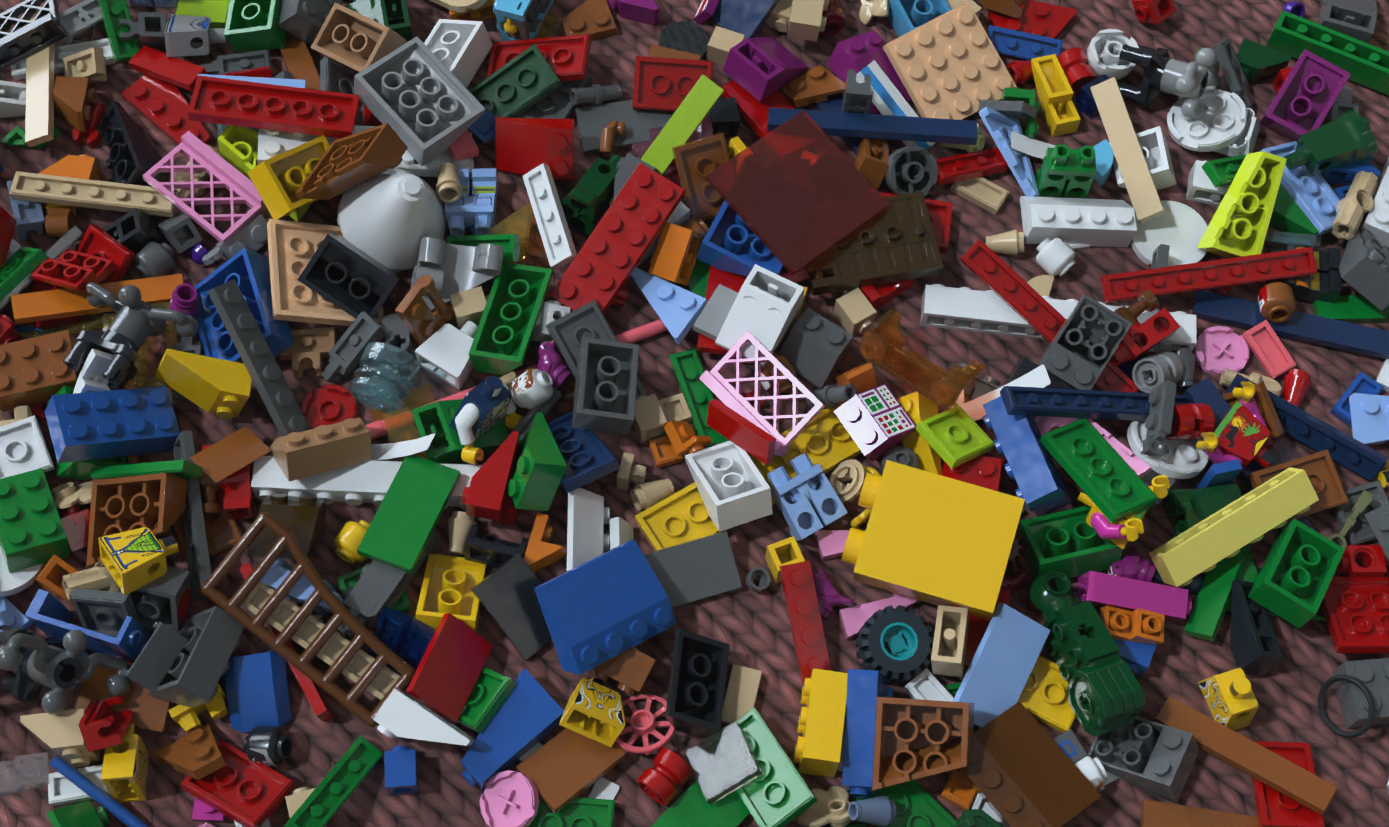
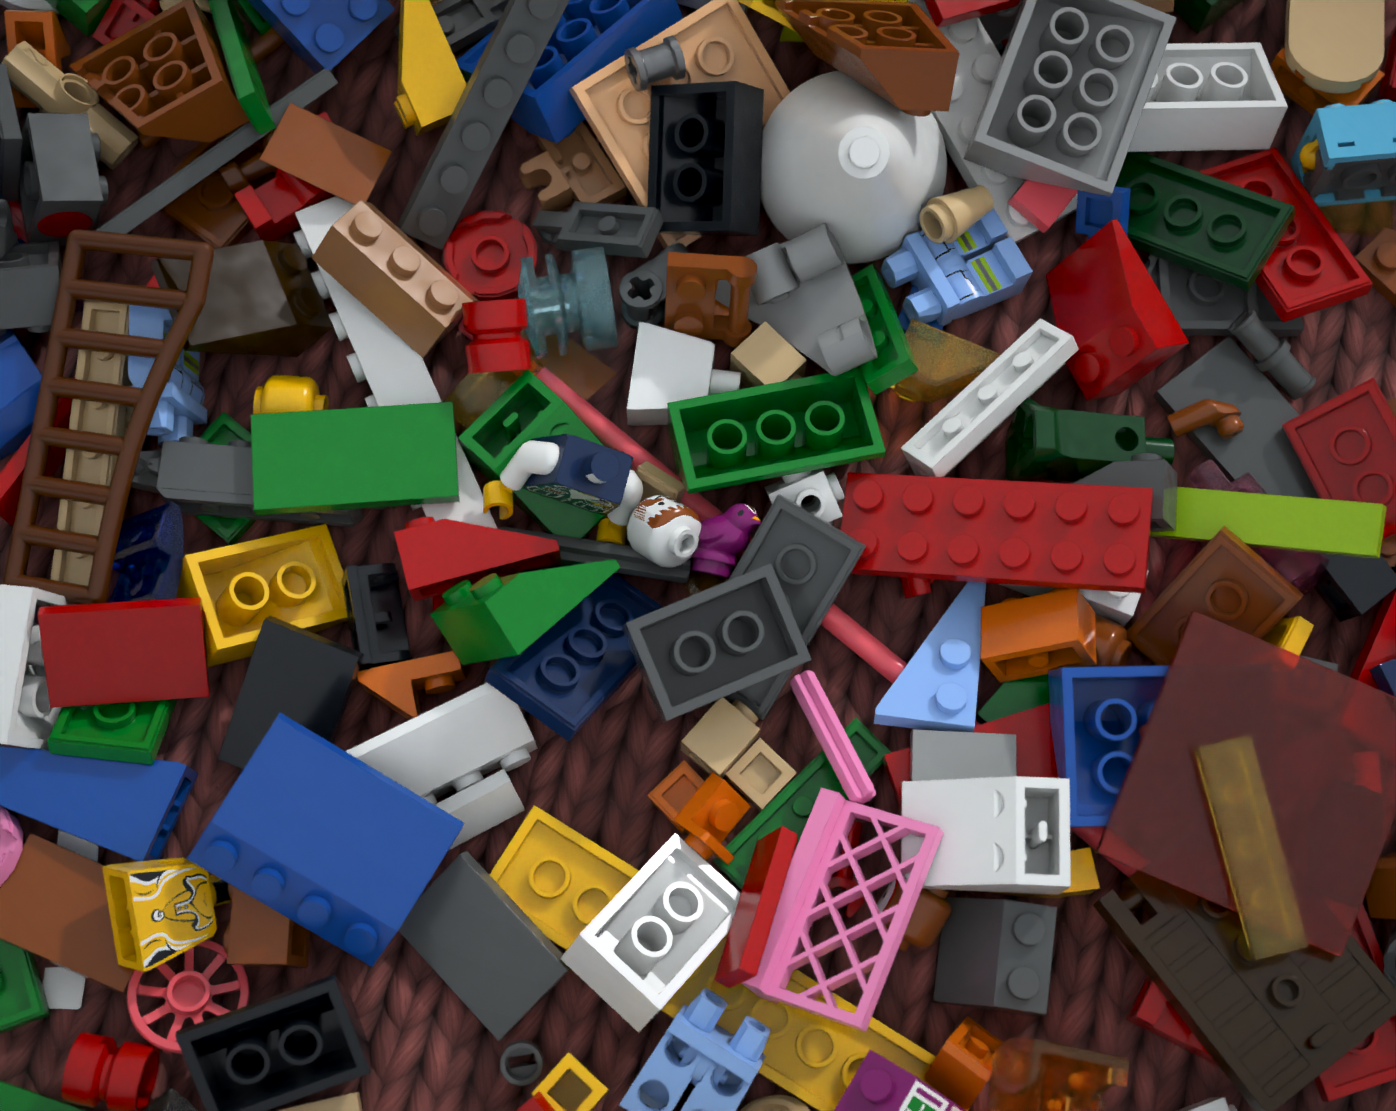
camera: 65 degrees right, 10 degrees up
(135, 557) = (73, 115): yellow torso -> none
(289, 270) = (655, 63): none -> flat silver bush
(386, 412) = (496, 335): none -> red wheel
(400, 449) = (455, 384): white sticker -> none
(459, 529) = (374, 548): tan cone -> none
(630, 472) = (608, 755): tan tile -> none
(651, 493) = (591, 812): tan cone -> none
(675, 367) = (832, 737): none -> bright pink axle
(823, 209) = (1251, 847): none -> clear yellow tile
(833, 395) = (912, 1029): dark grey pin -> none
(854, 312) = (1105, 994): tan brick -> none

